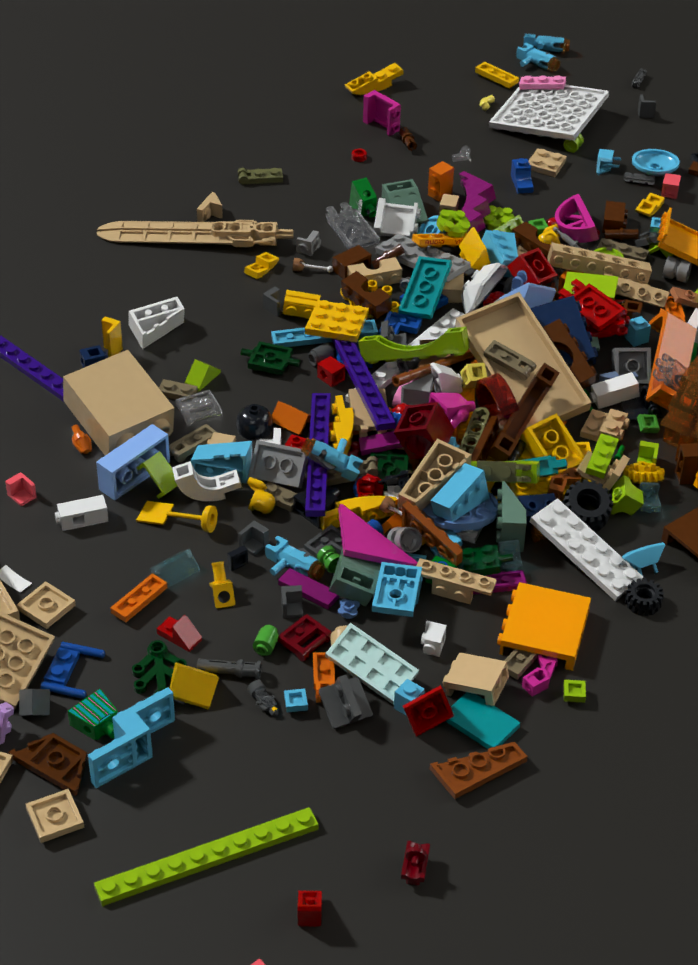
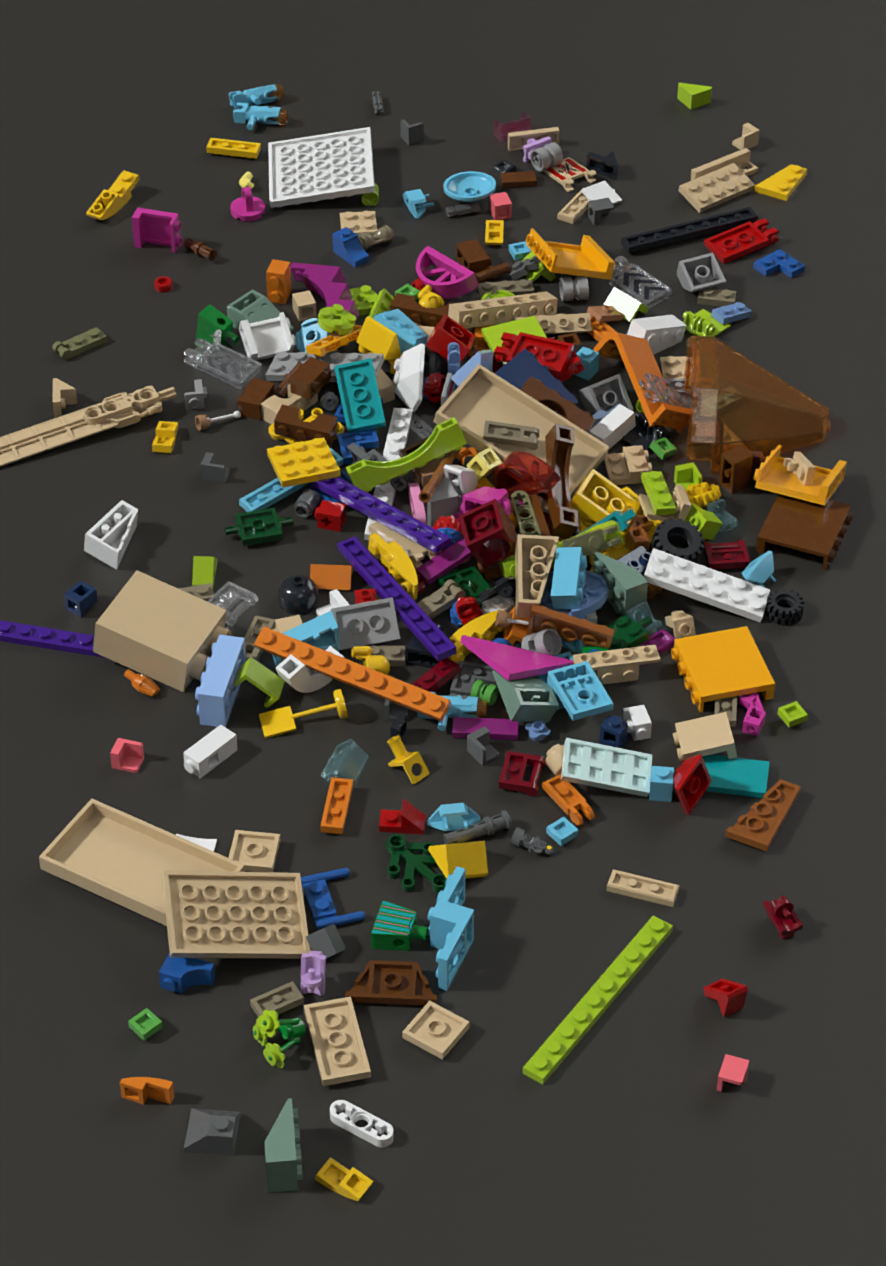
camera: 30 degrees left, 0 degrees up
(112, 335) = (84, 565): yellow panel -> none
(220, 648) = (453, 817): none -> medium azure piece
(232, 499) = (354, 674): none -> orange plate
(266, 640) = (490, 790): bright green brick -> none
(298, 531) = (438, 675): none -> dark red hinge
(299, 303) = (245, 460): yellow brick -> none
(323, 780) = (643, 888): none -> tan tile
(332, 458) = (421, 594): medium azure piece -> none
(345, 702) = (609, 812): dark grey bracket -> none
(397, 259) = (310, 378): none -> reddish brown brick
(405, 638) = (613, 727): none -> dark blue brick
(463, 155) = (270, 246): clear arm -> none
(470, 120) = (247, 206): none -> dark pink tile
(540, 573) = (681, 623): none -> tan bracket
(541, 175) = (382, 235): none -> dark tan piece
(542, 82) = (293, 140): bright pink plate -> none
(566, 238) = (447, 296): light grey piece -> none
(629, 532) = (726, 555): none -> dark red plate

